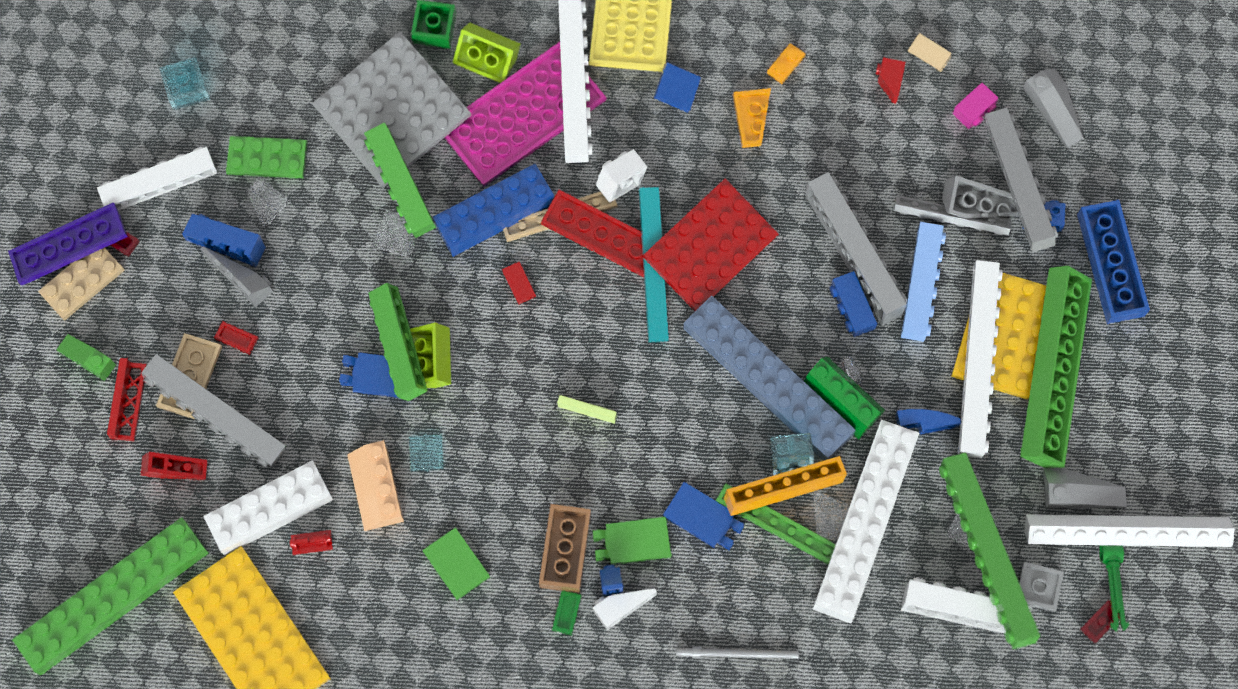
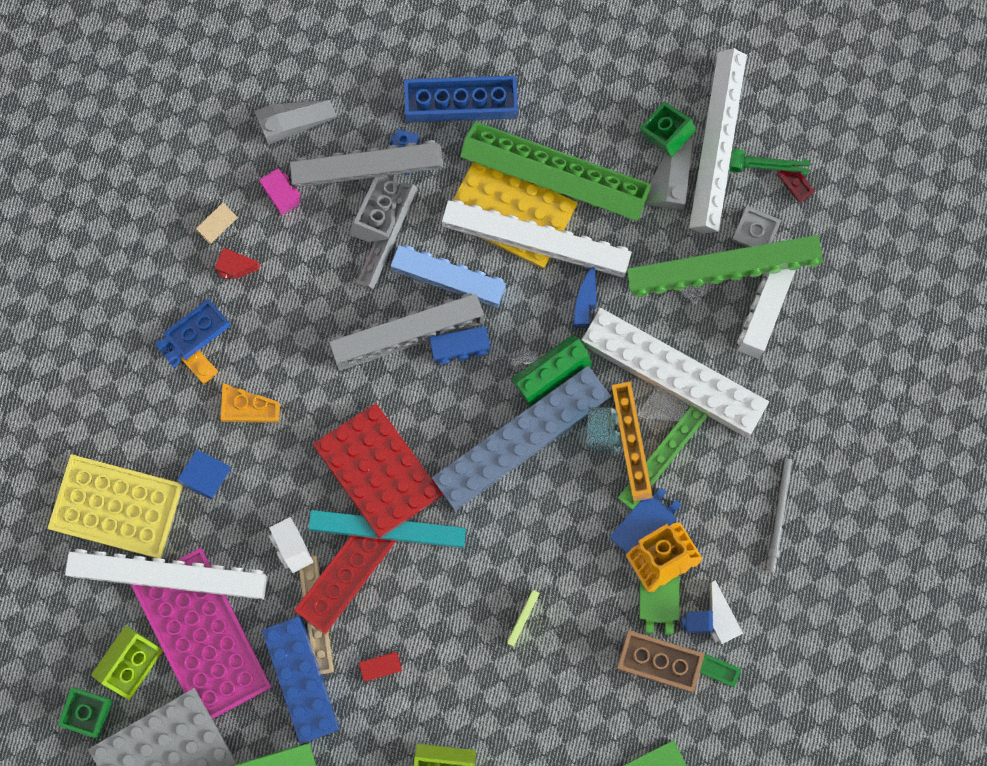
camera: 85 degrees left, 5 degrees up
(673, 536) = (663, 556): none -> light orange slope
(814, 51) = (192, 332): none -> blue tile
(1128, 474) = (668, 129): none -> green brick

